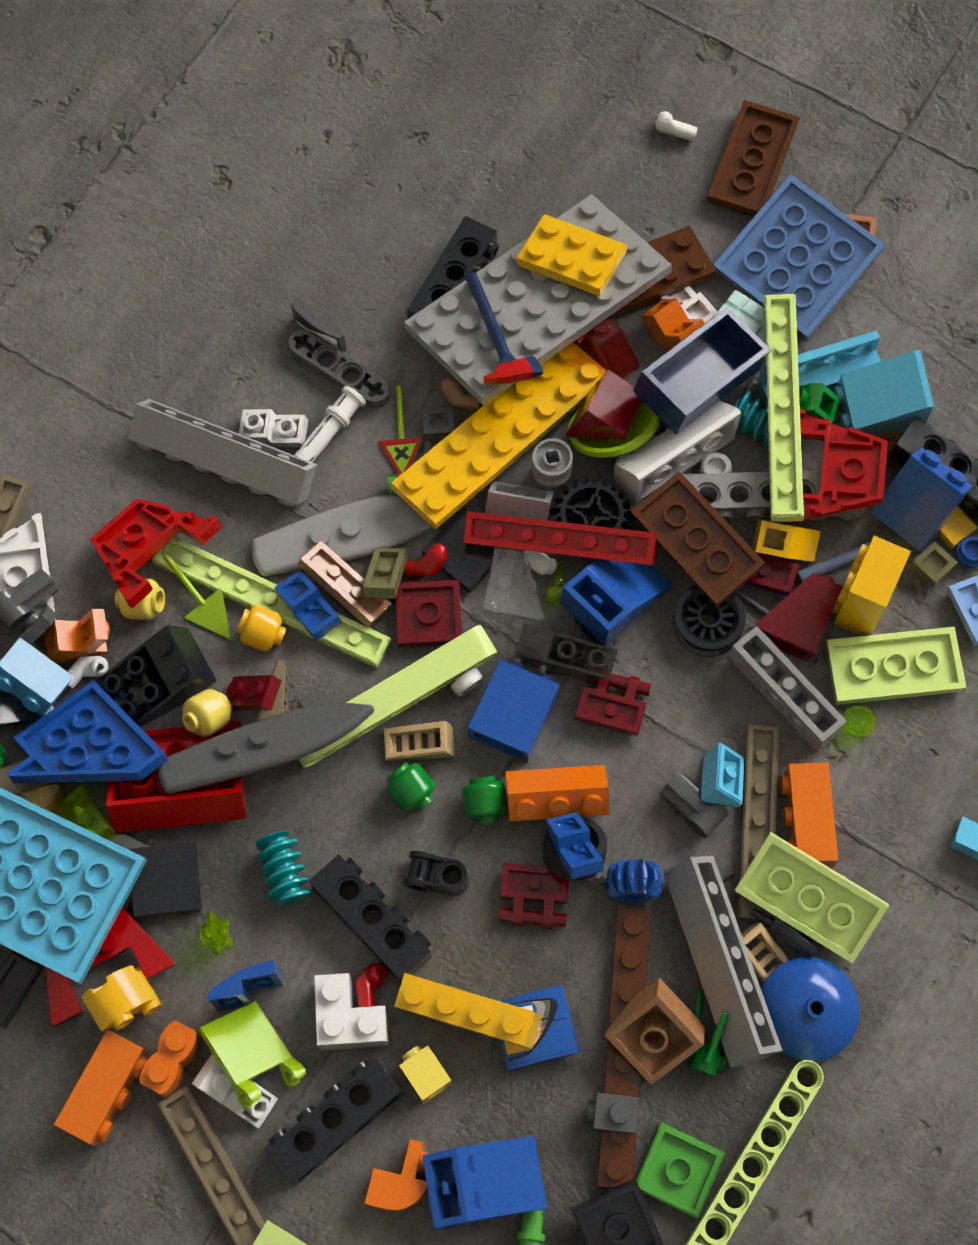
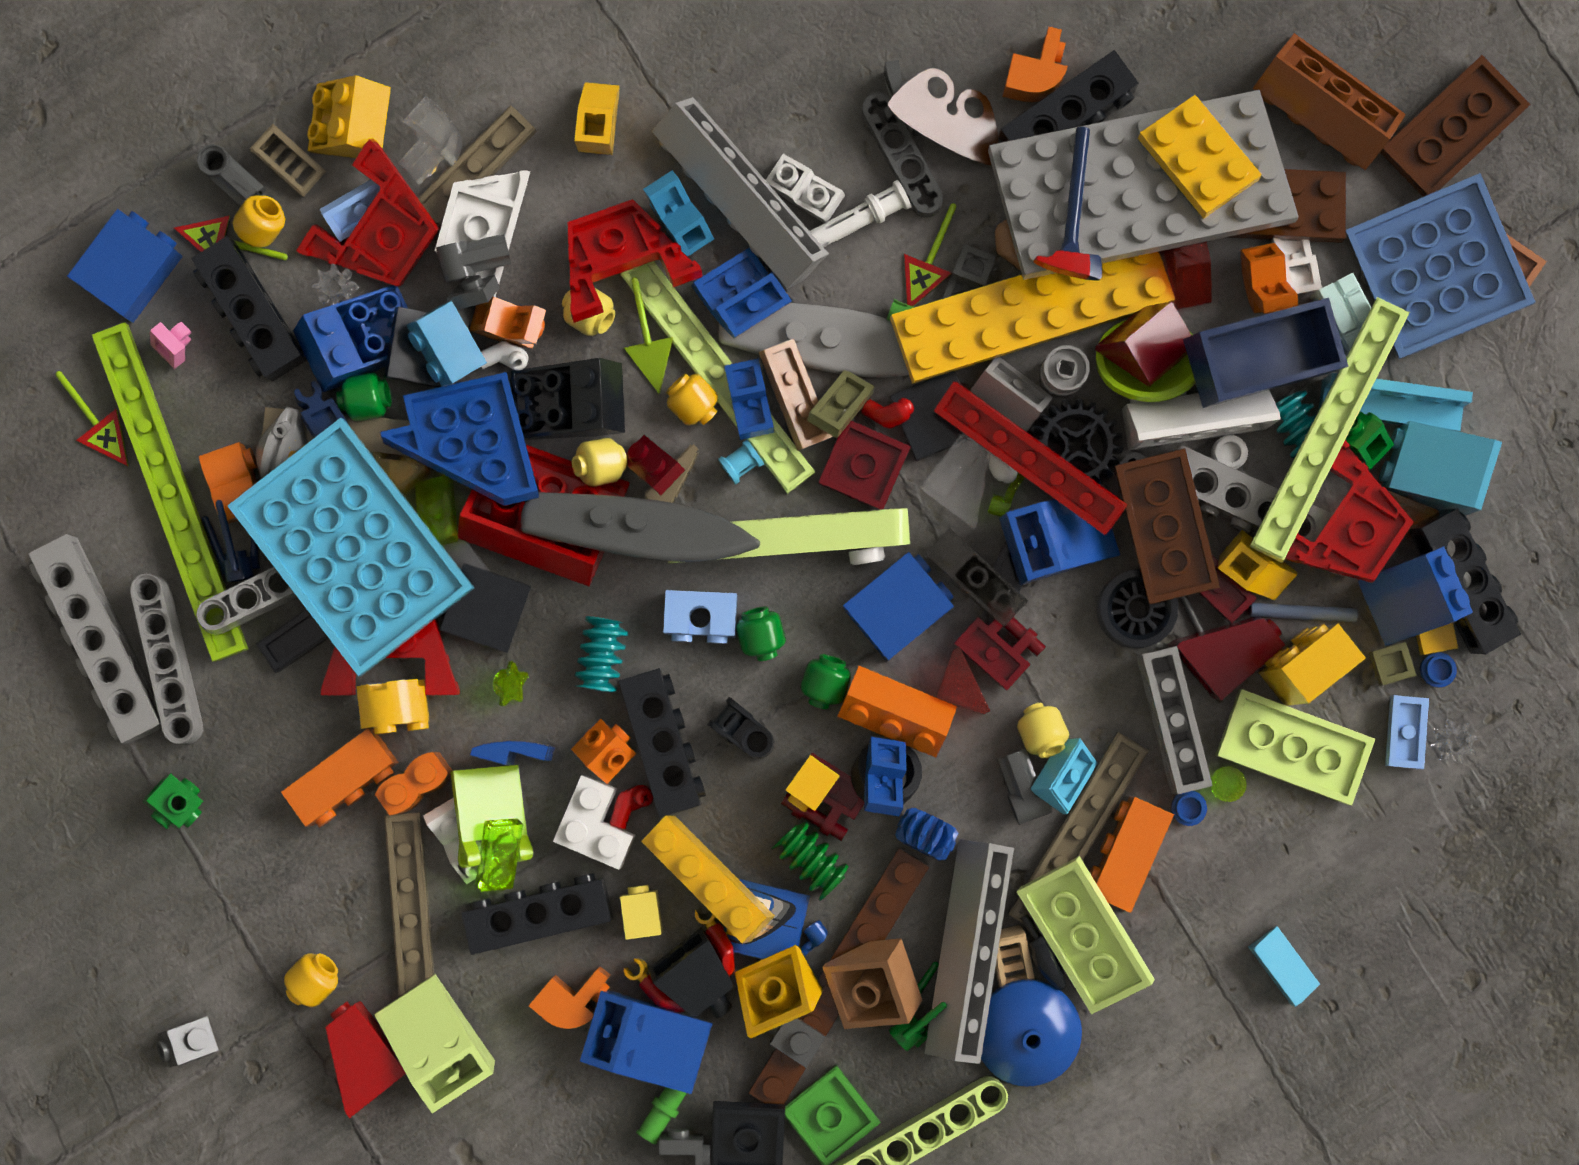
camera: 25 degrees right, 15 degrees up
(78, 452) = (597, 118): none -> yellow slope
(177, 490) = (678, 214): none -> dark azure brick
(260, 527) = (741, 293): none -> blue slope
(275, 1082) = (499, 854): none -> clear neon green plate
(324, 947) = (604, 750): none -> orange brick
(325, 658) = (740, 461): none -> medium azure bush
(347, 327) = (930, 116): none -> piece
(362, 781) = (681, 605): none -> light blue brick
(412, 265) = (1035, 78): none -> orange brick
(432, 752) = (818, 603): tan slope -> none
(496, 1101) = (692, 973): none -> black torso
(515, 885) = (811, 784): none -> yellow brick
(548, 952) = (811, 859): none -> green piece
(575, 1077) = (777, 990): none -> yellow slope
(585, 1017) = (816, 934): none -> blue hand
(600, 748) = (960, 686): none -> clear red slope
(649, 183) = (1329, 102): none -> dark orange slope
(667, 125) = (1383, 41): white arm -> none
(685, 751) = (1043, 730): none -> light yellow head
(839, 755) = (1189, 808): none -> blue plate

